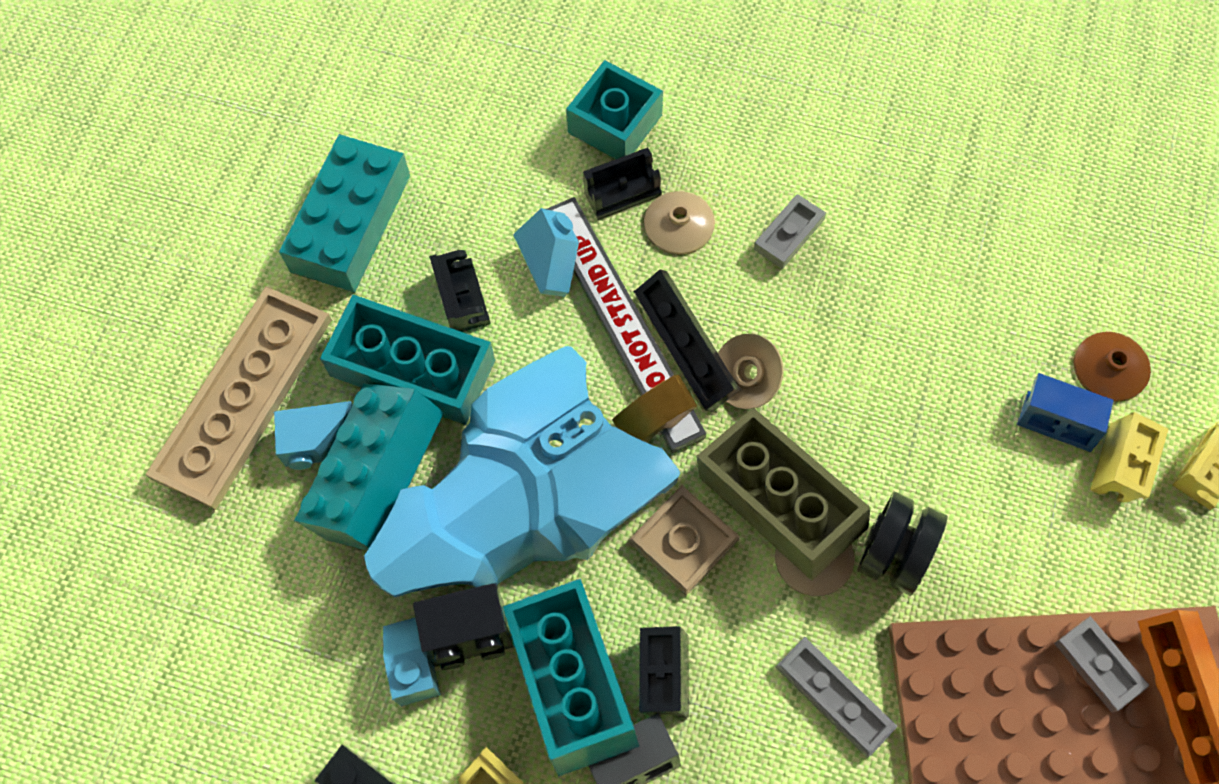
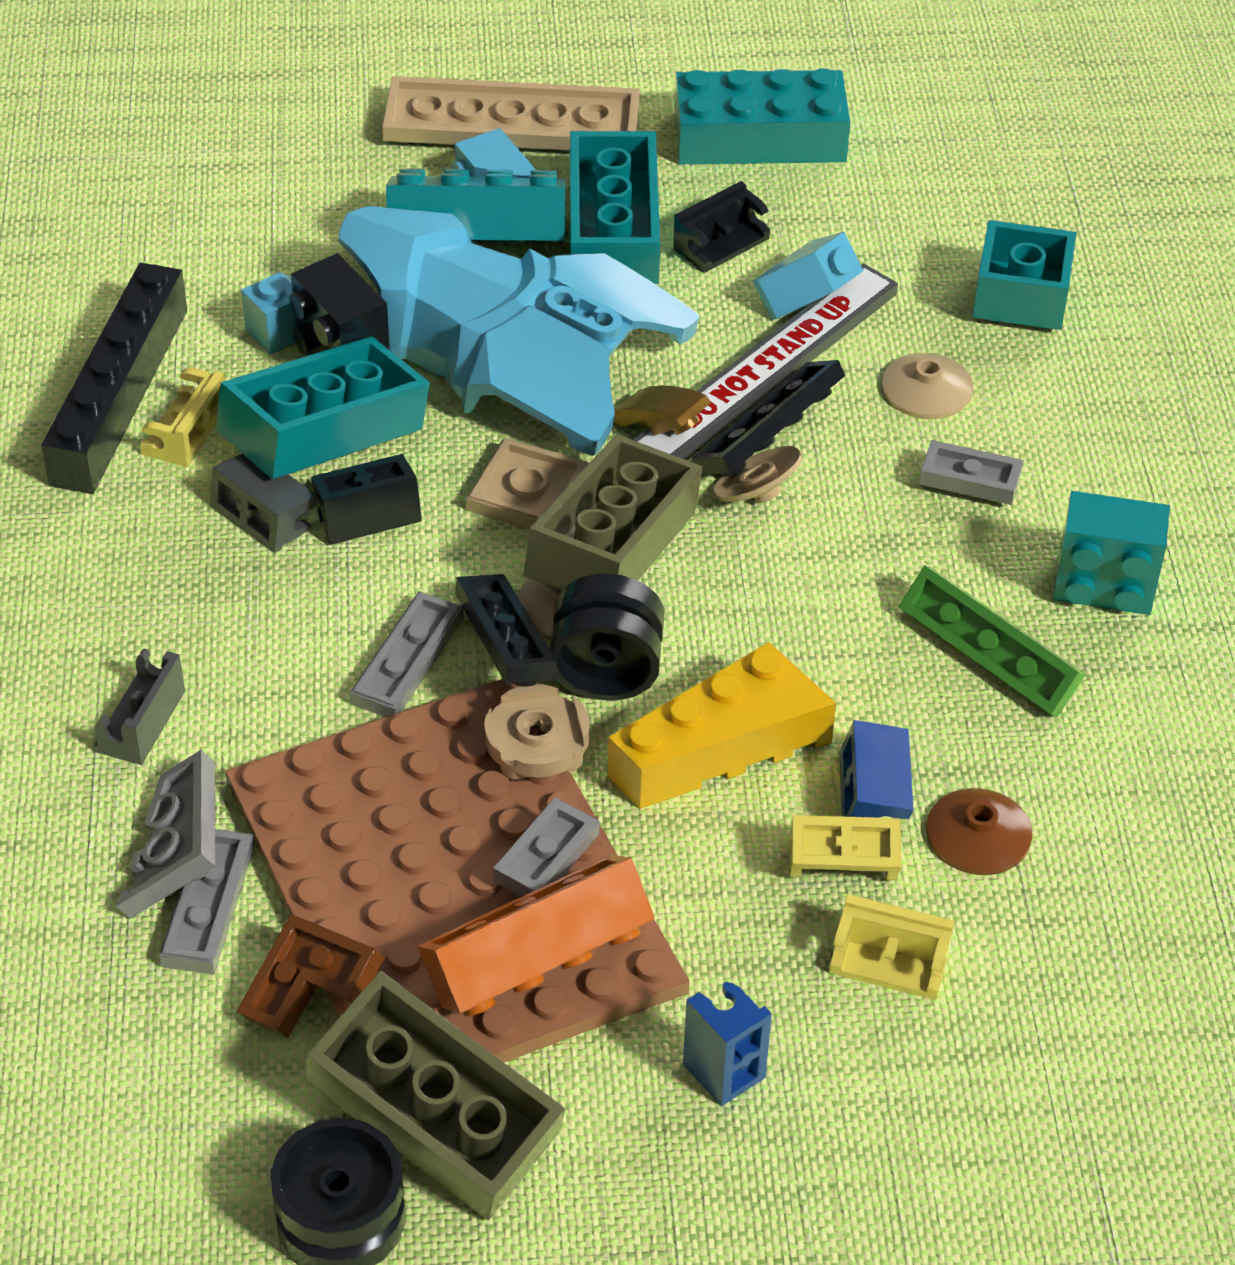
camera: 65 degrees right, 20 degrees down
(622, 183) = (939, 313): black hinge -> none
(866, 614) = (506, 629): none -> black plate
(922, 179) = (1111, 552): none -> teal brick
(958, 287) = (992, 641): none -> bright green plate
(996, 496) = (719, 727): none -> yellow wedge
(996, 613) = (536, 756): none -> tan plate

